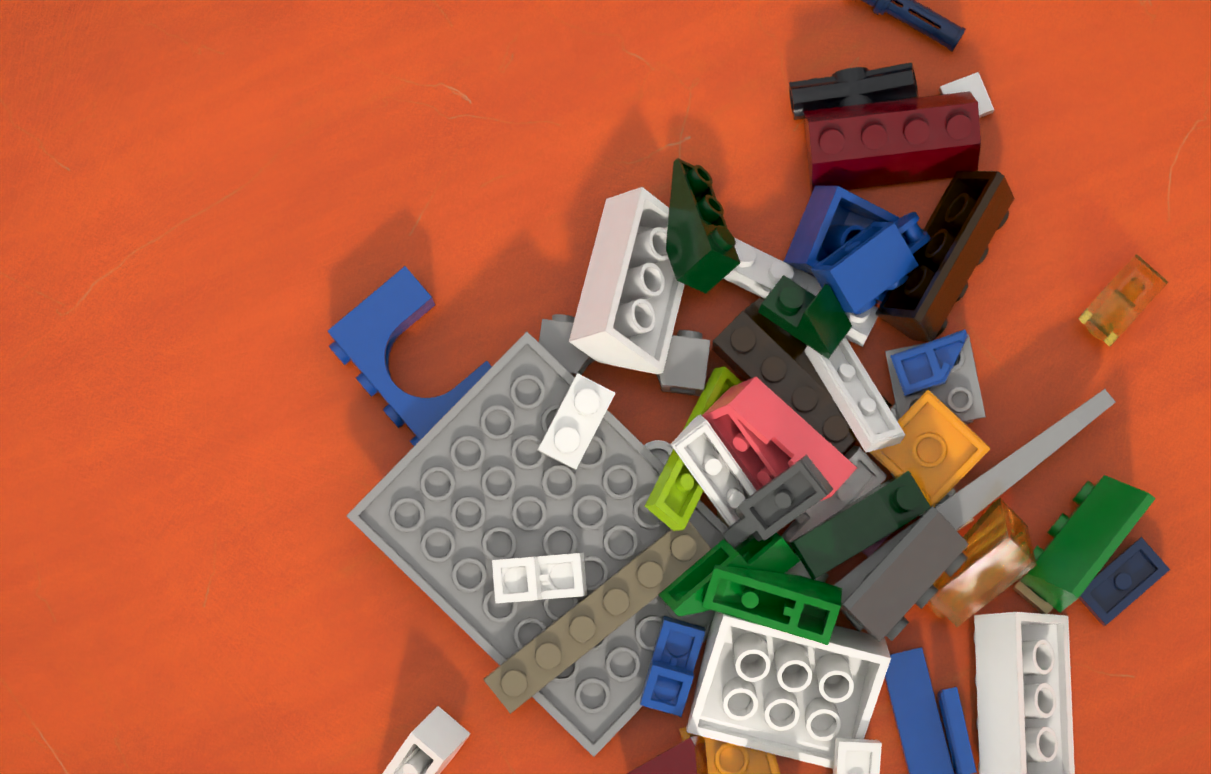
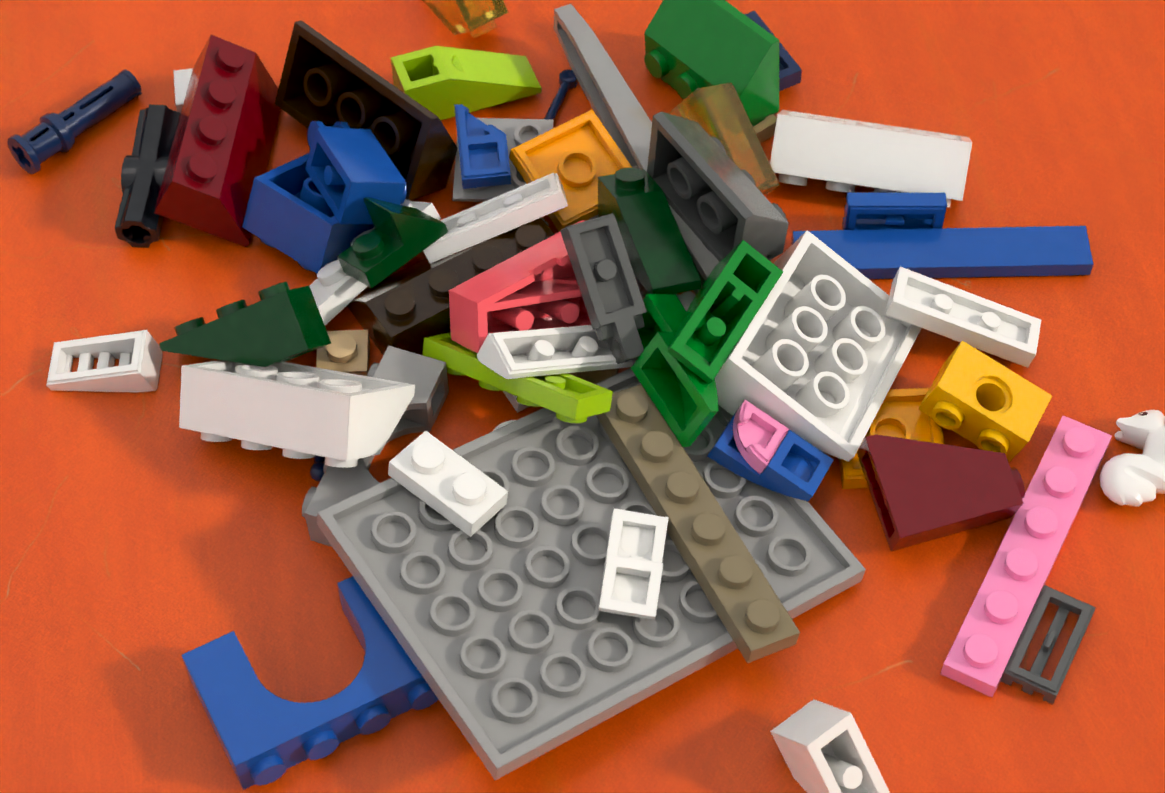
camera: 85 degrees left, 25 degrees down
(667, 144) = (137, 368): none -> white slope
(683, 652) = (756, 435): none -> bright pink tile
(714, 307) = (346, 353): none -> tan plate
(991, 409) = (567, 81): none -> dark blue hinge
(1018, 327) = (453, 76): none -> lime slope

